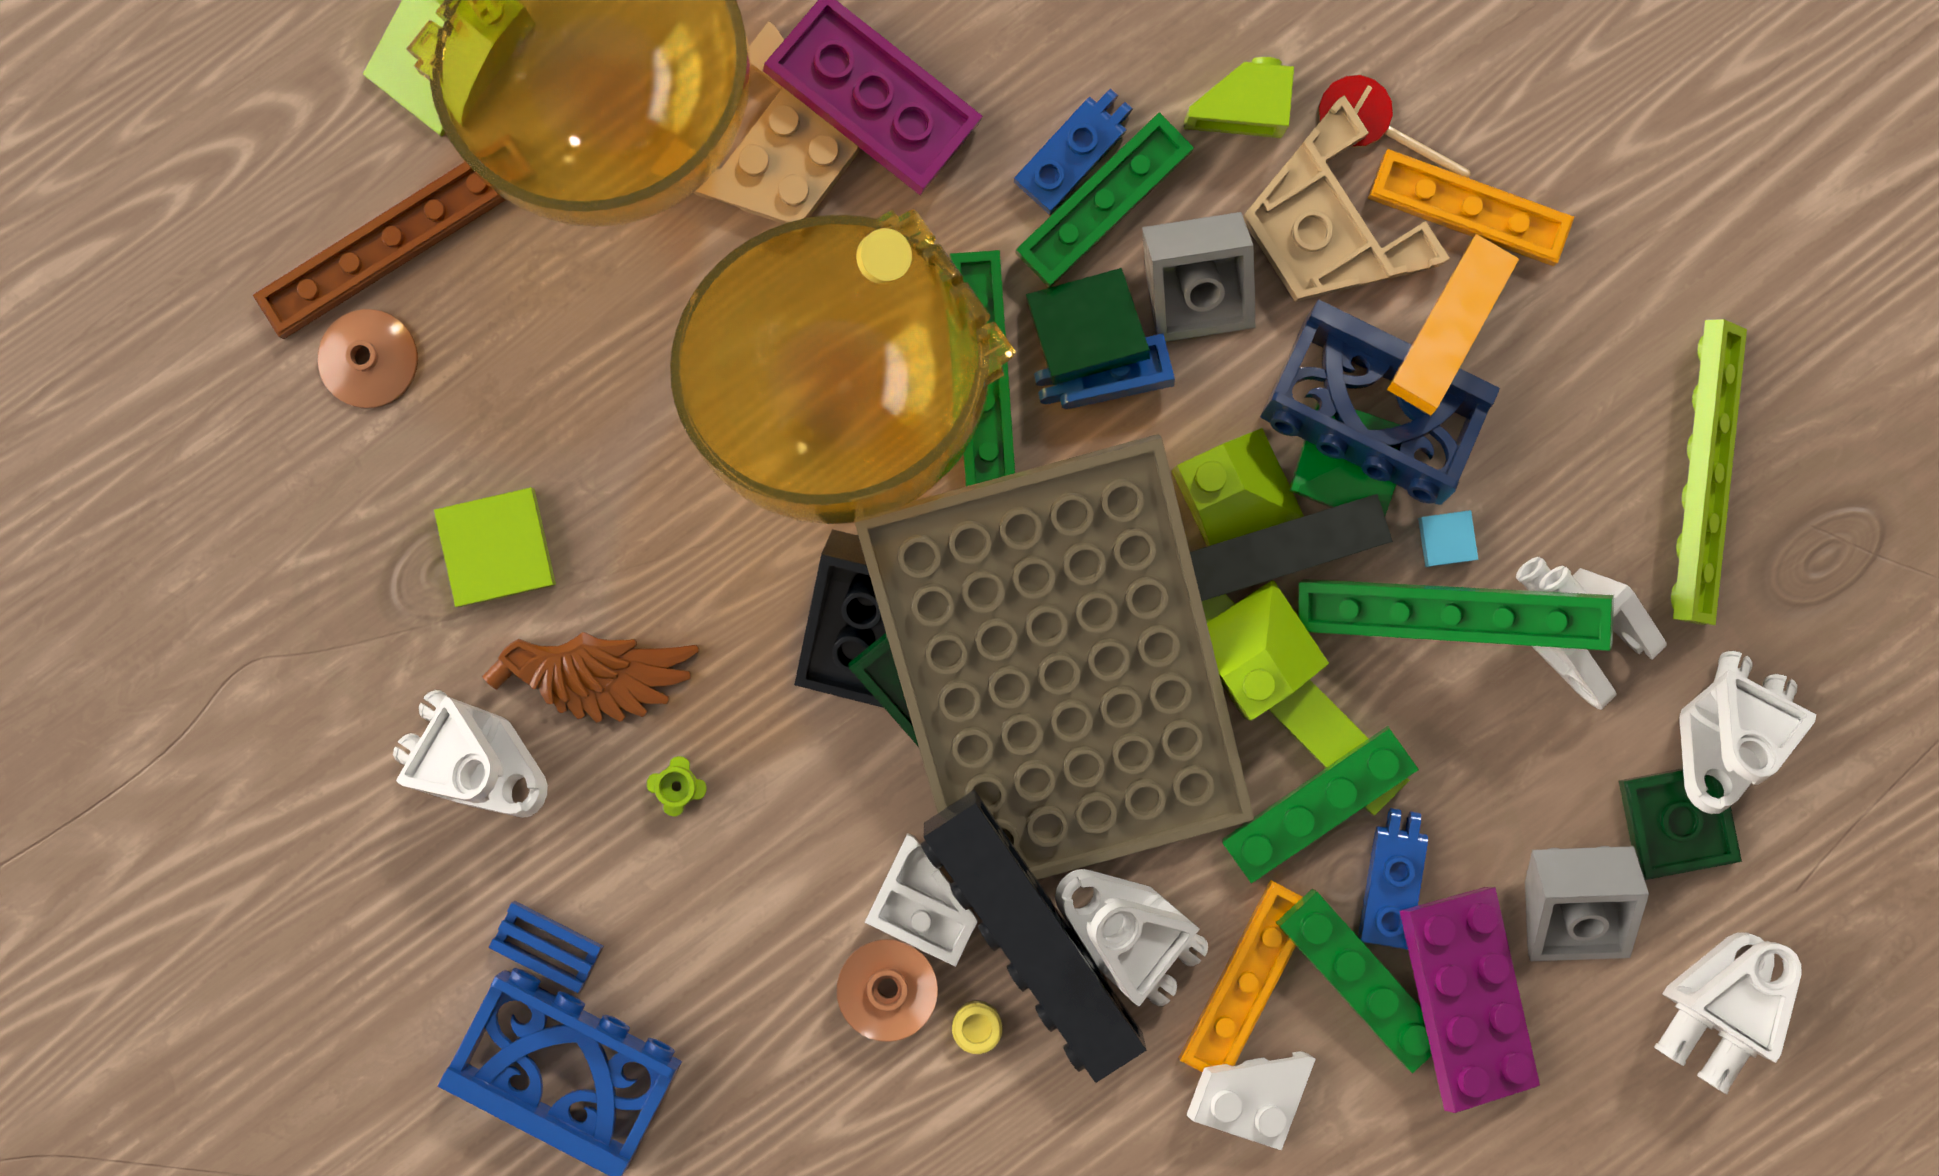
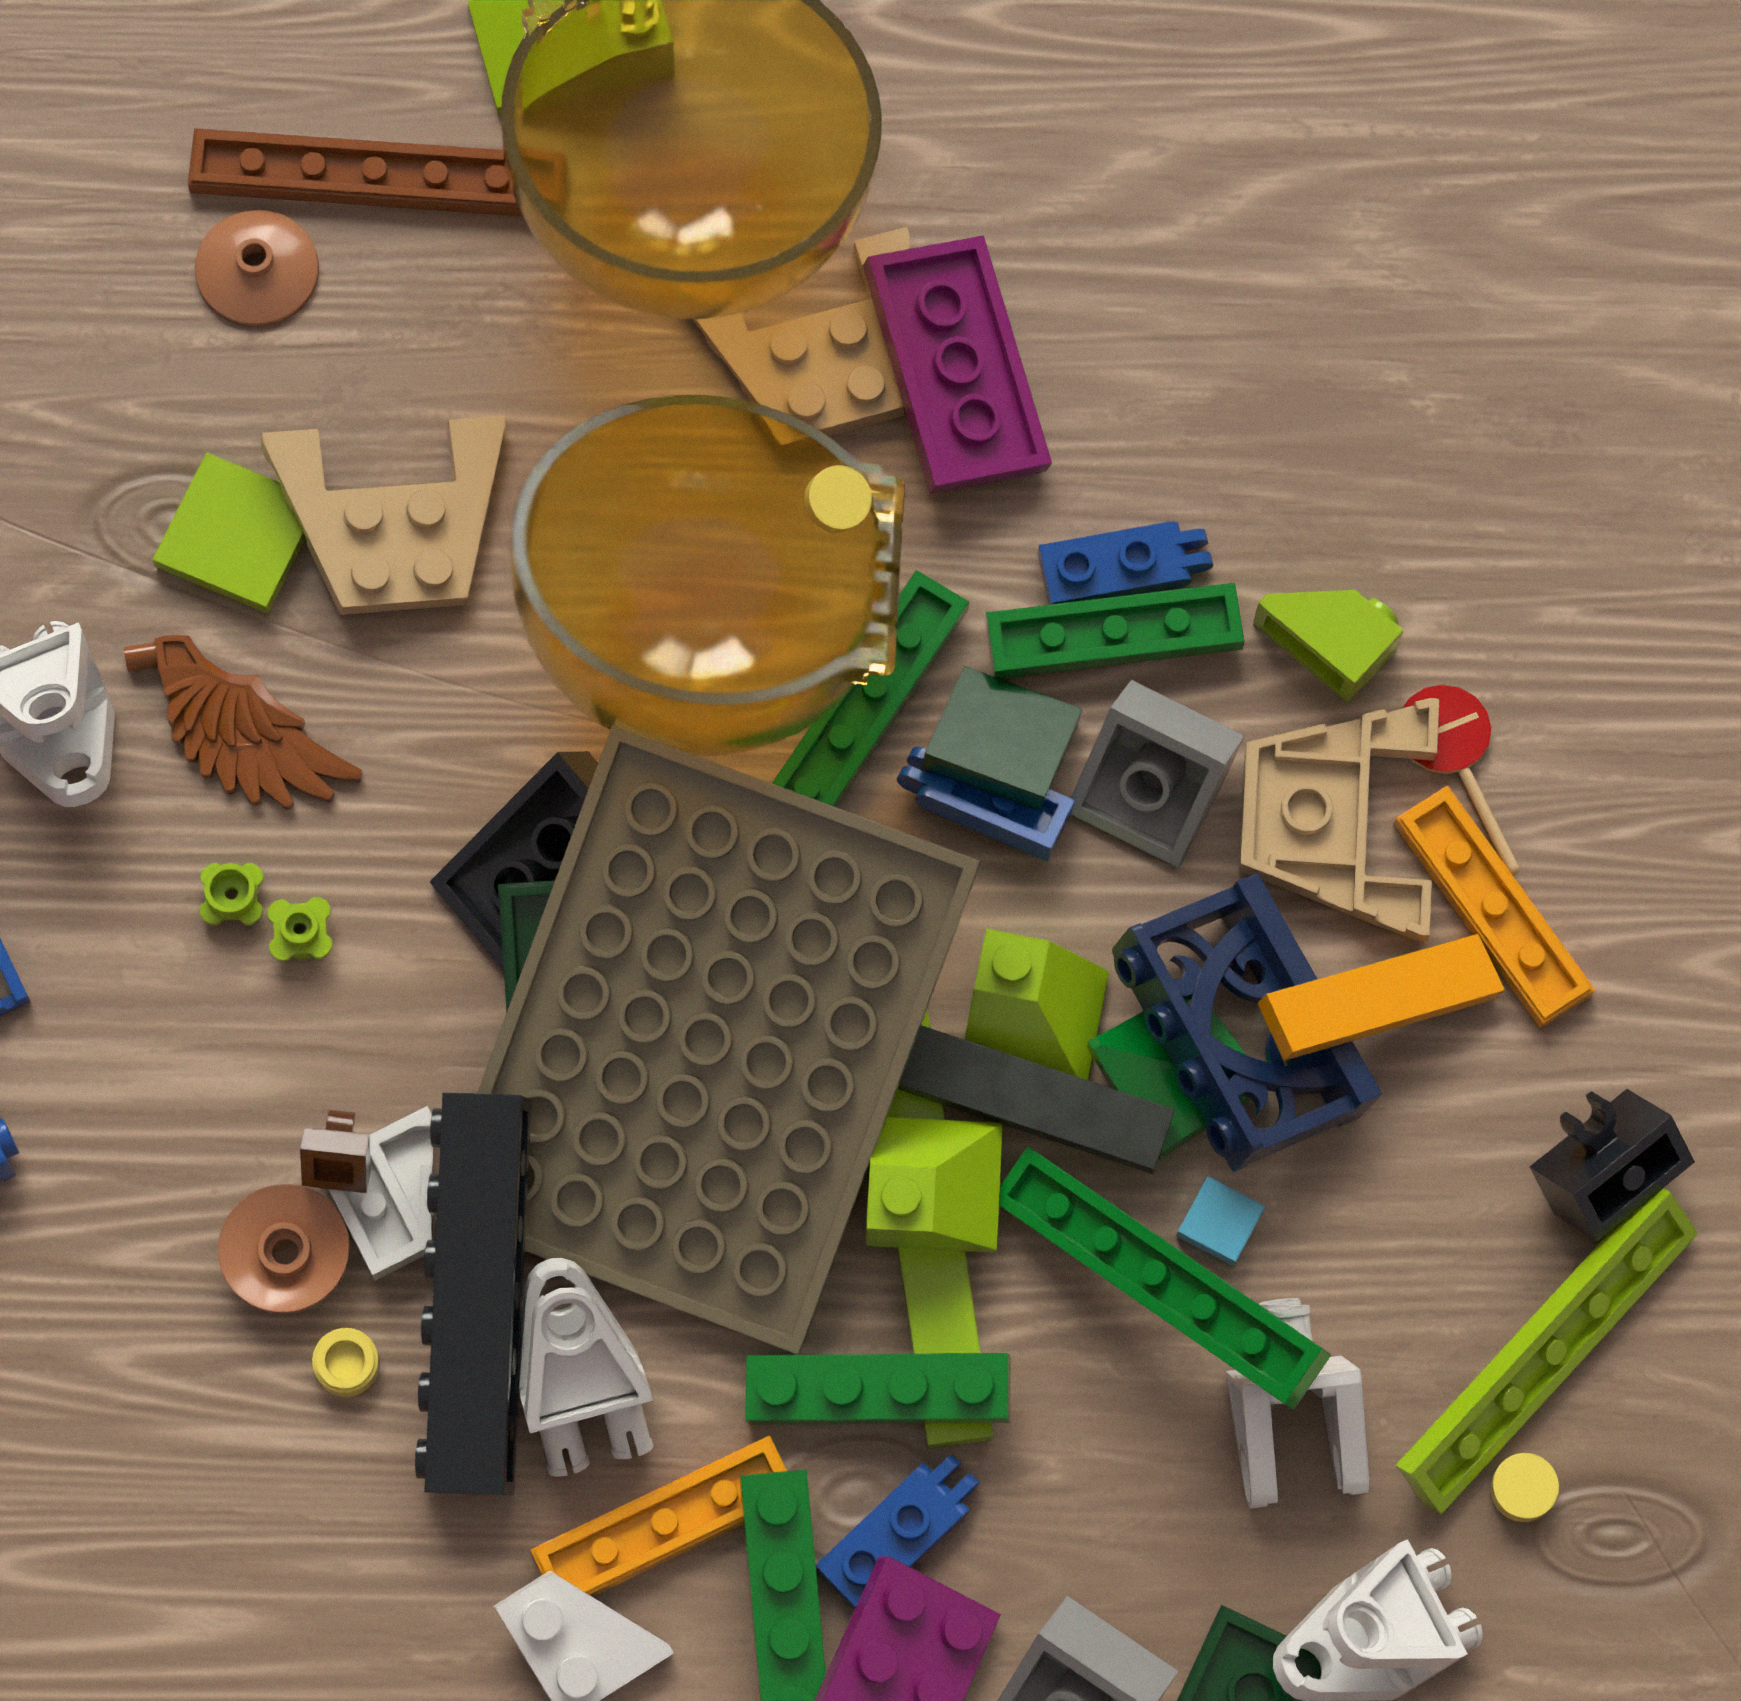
camera: 30 degrees right, 15 degrees down
(602, 479) = (392, 542): none -> tan wing
(738, 762) = (313, 942): none -> lime plate
(879, 913) = (336, 1155): none -> reddish brown tile
(1671, 326) = (1611, 1162): none -> black brick
(1752, 570) = (1524, 1487): none -> light yellow tile

